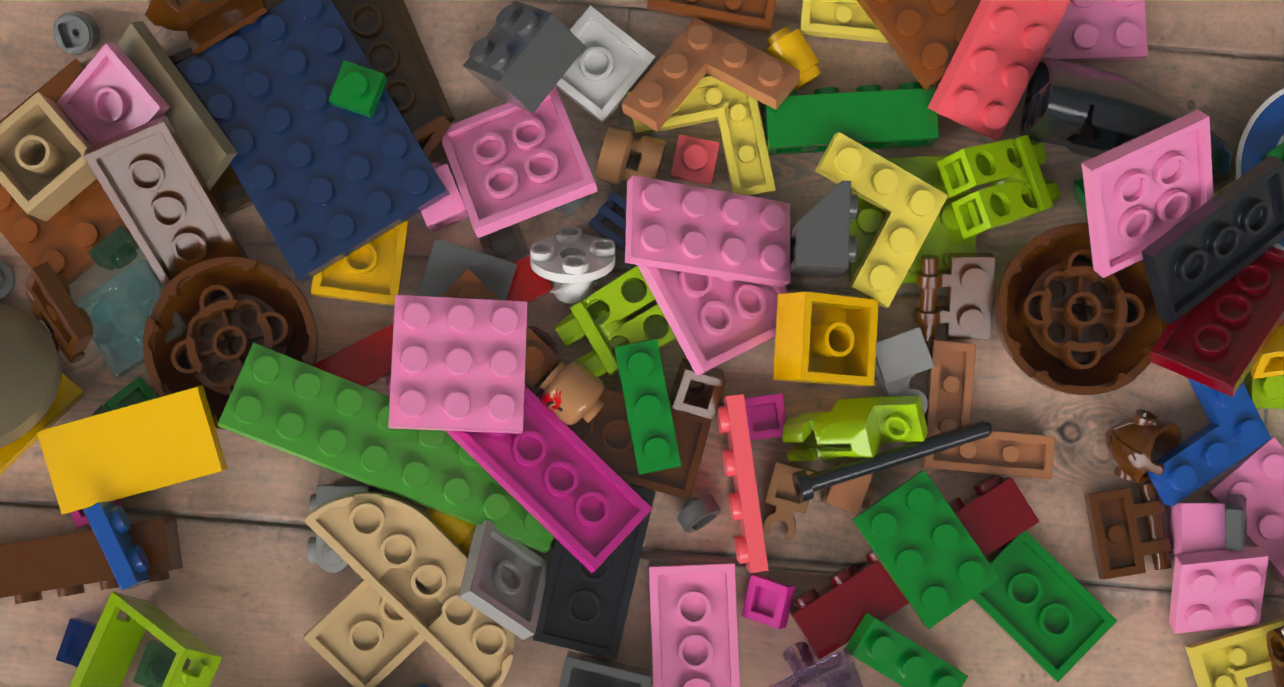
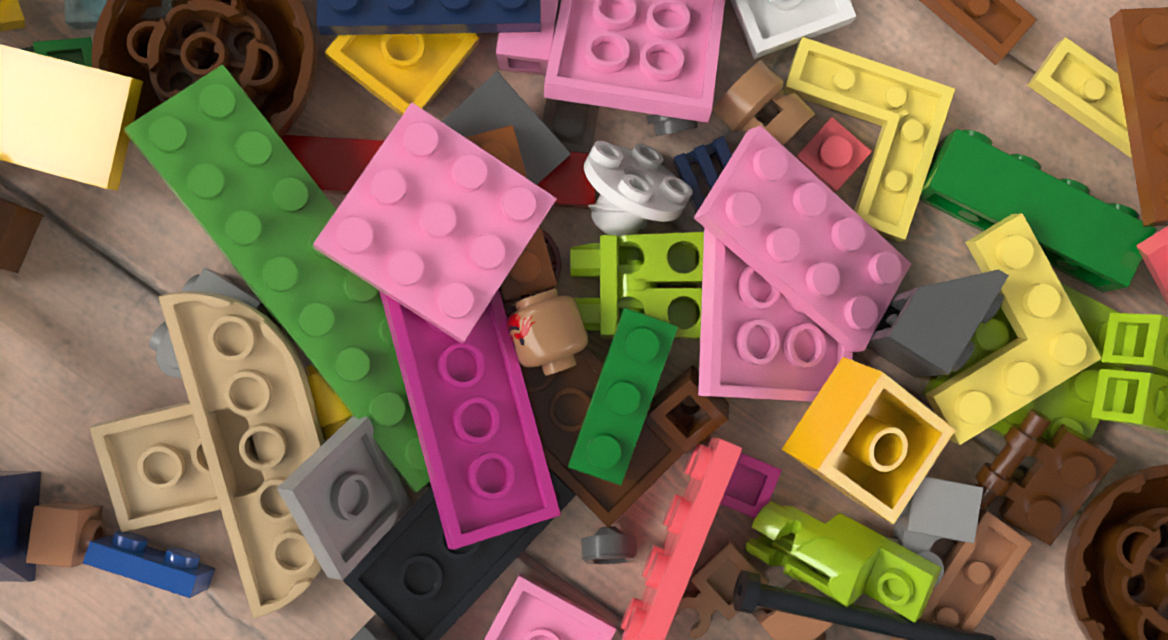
camera: 30 degrees right, 0 degrees up
(709, 51) = (927, 52): nougat plate -> none
(795, 51) = (1008, 105): yellow brick -> none

